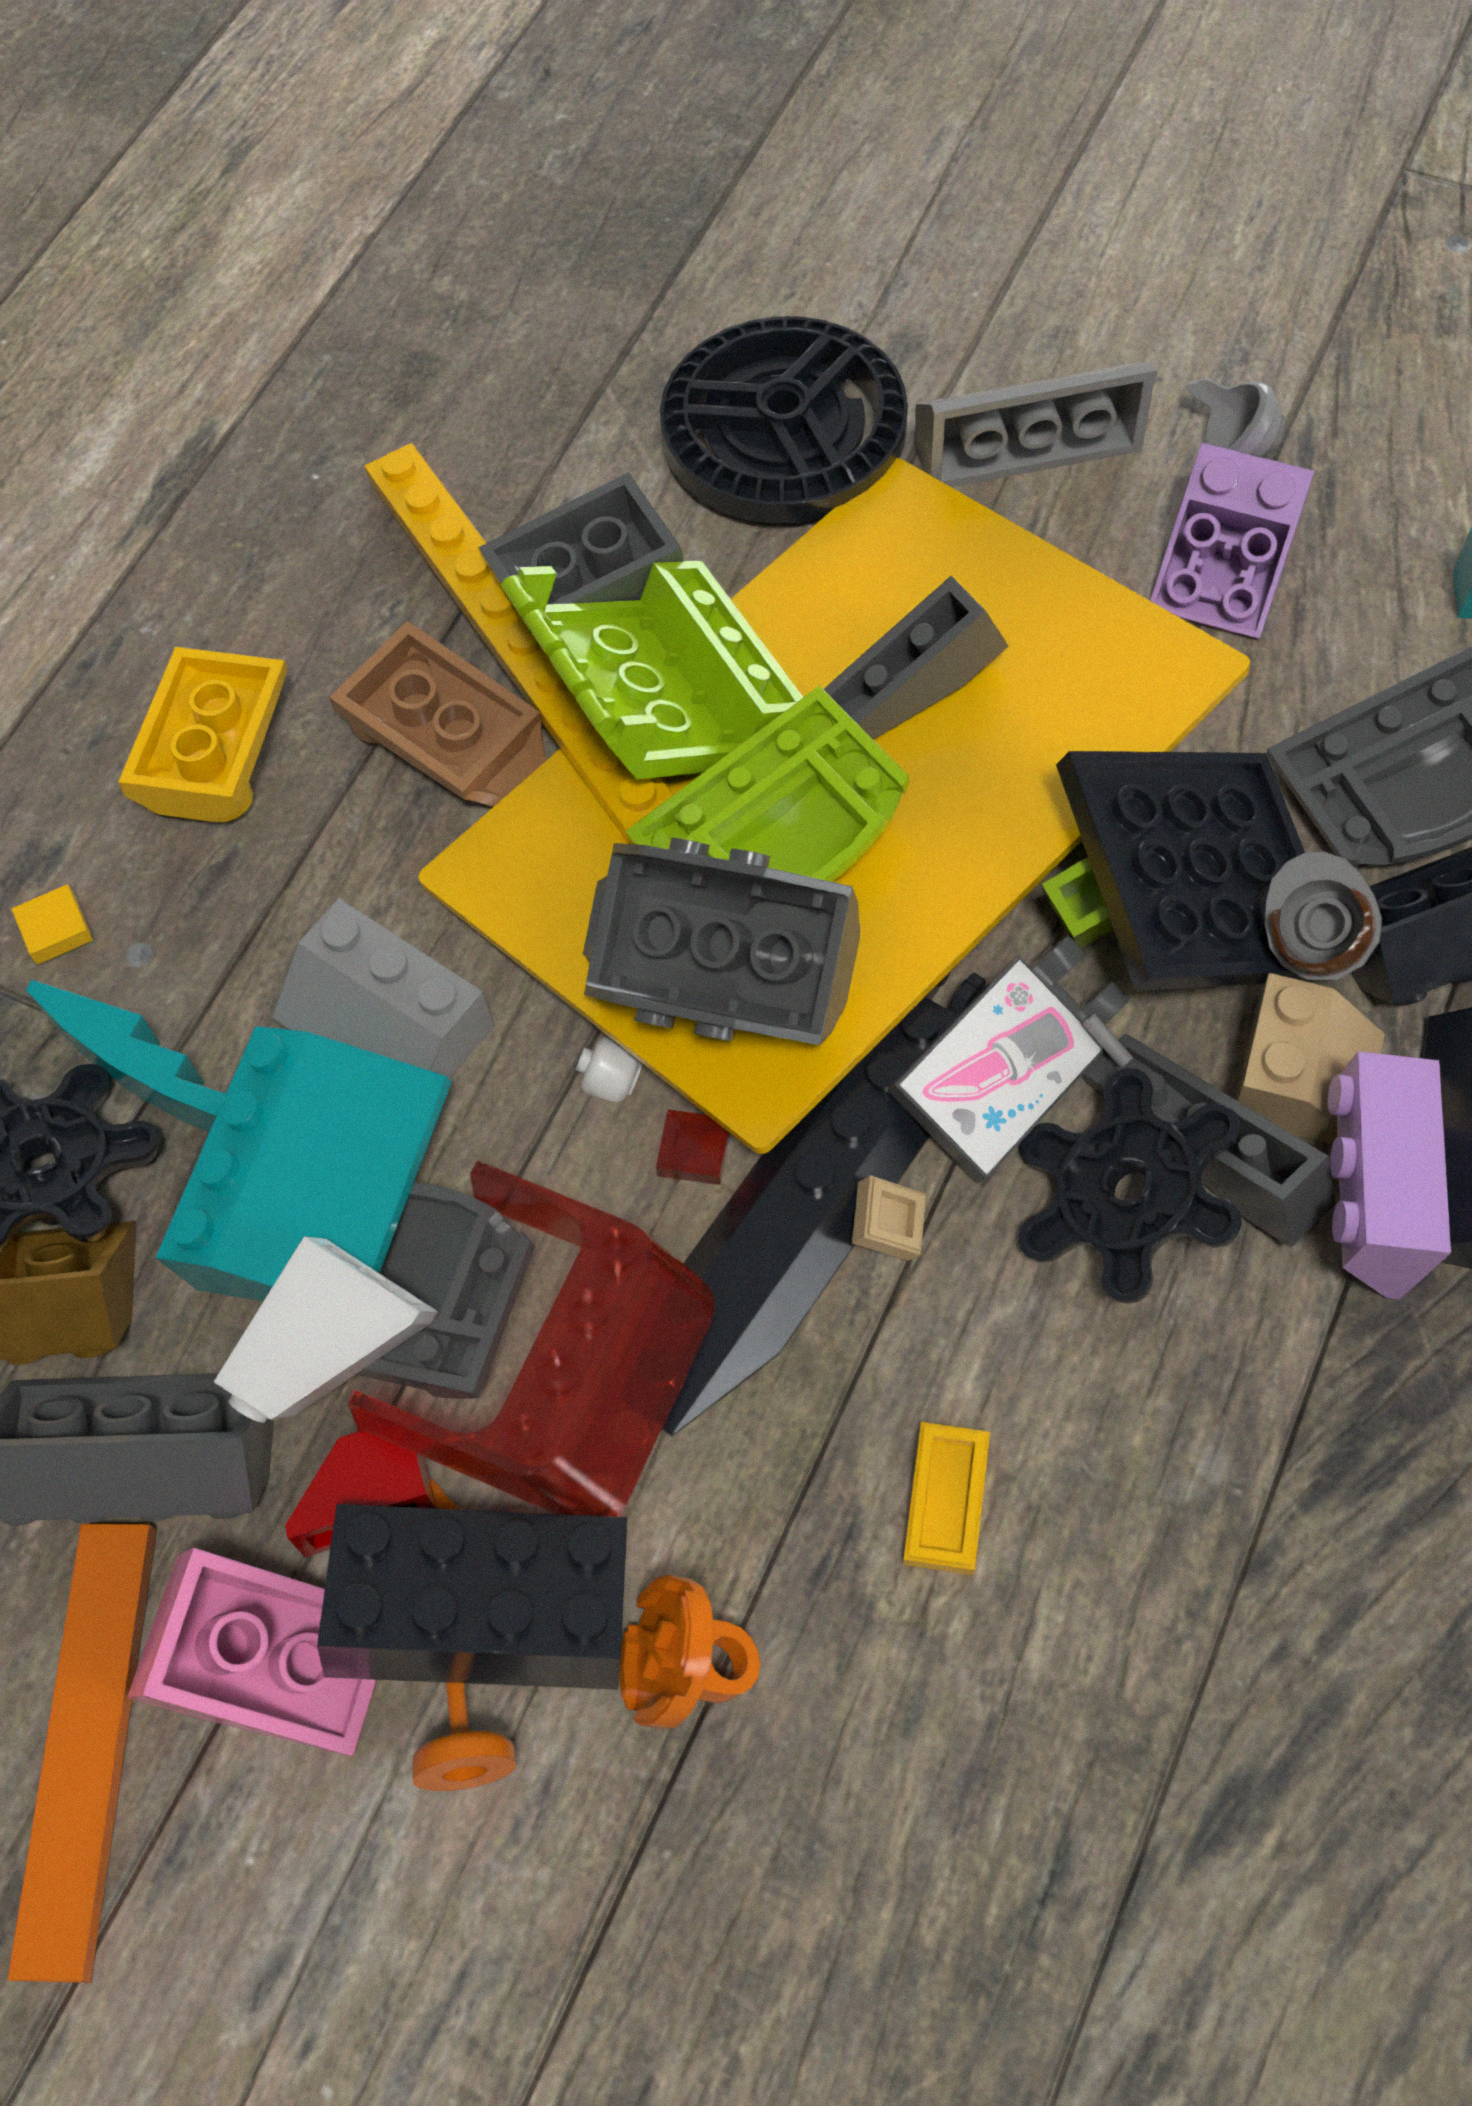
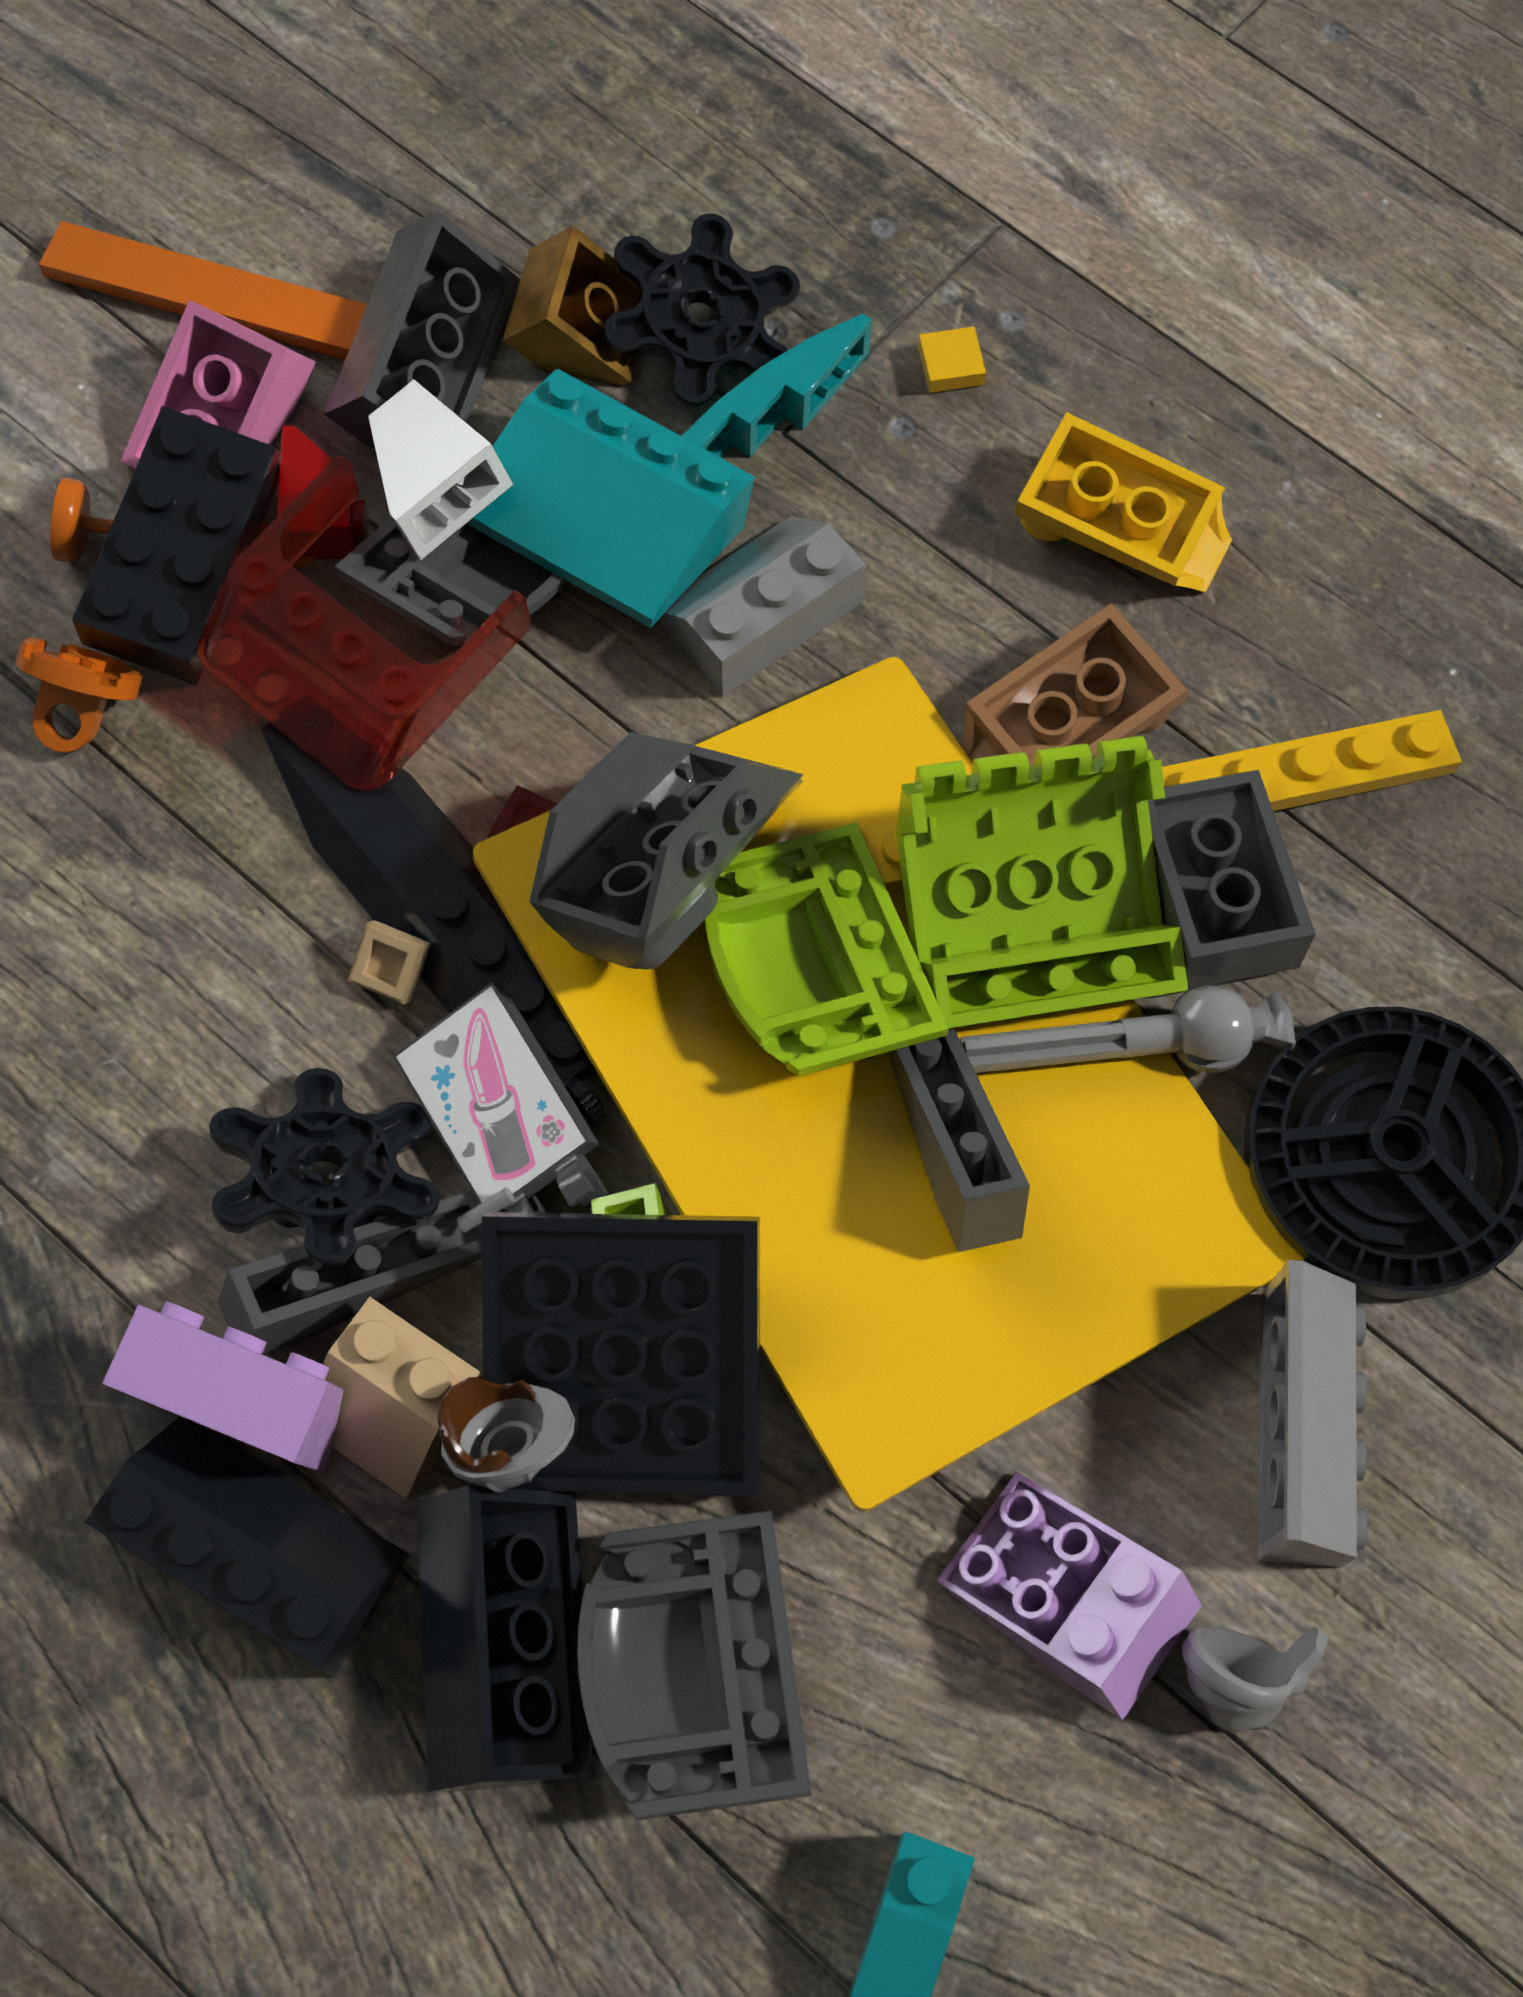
camera: 100 degrees right, 5 degrees up
(733, 553) = (1206, 1029): none -> light grey piece
(947, 1498) = (128, 936): yellow tile -> none

